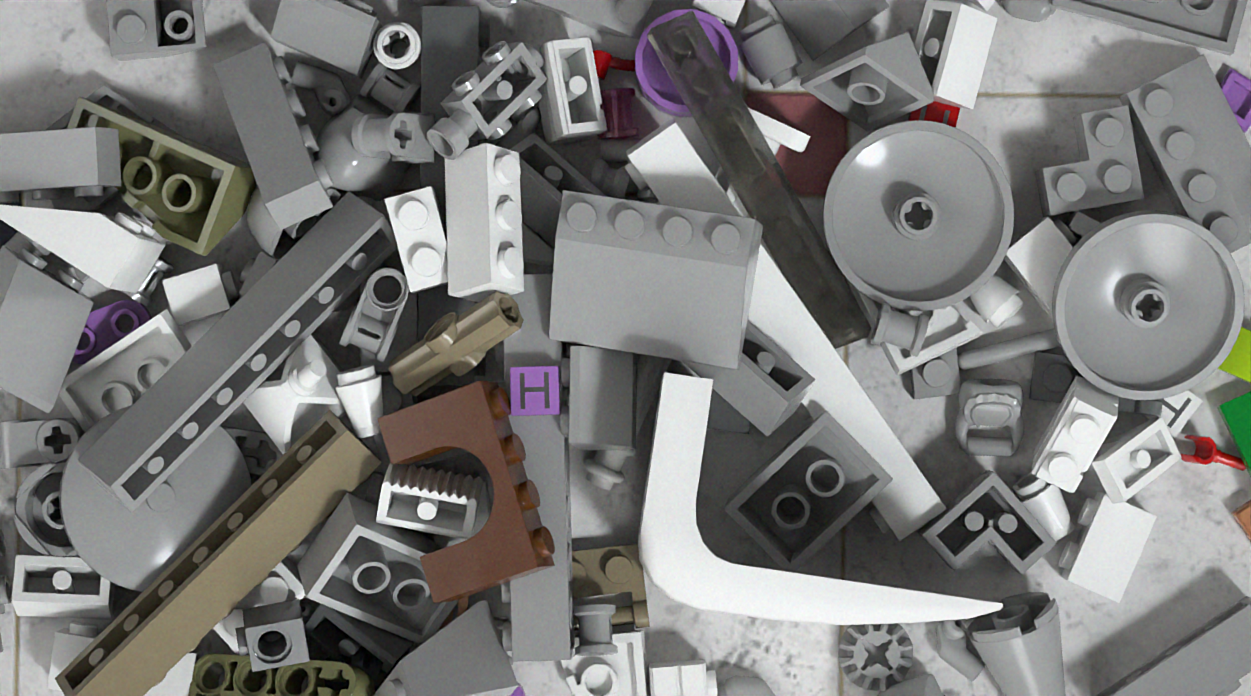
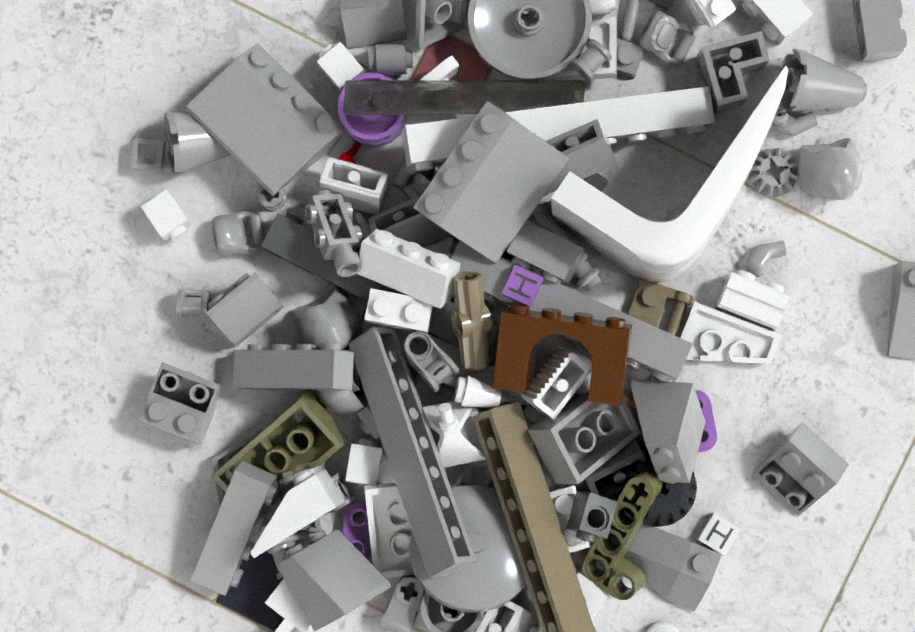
camera: 65 degrees left, 5 degrees down
(326, 85) = (278, 328): light grey arm -> none
(390, 89) = (300, 290): light grey bush -> none
(391, 34) = (273, 264): white cone -> none
(394, 137) = (332, 295): light grey piece -> none
(595, 630) = (681, 326): light grey bush -> none
(618, 114) = (379, 162): clear pink bush -> none
(807, 492) = (659, 160): light grey slope -> none
(1045, 504) = (732, 28): white cone -> none

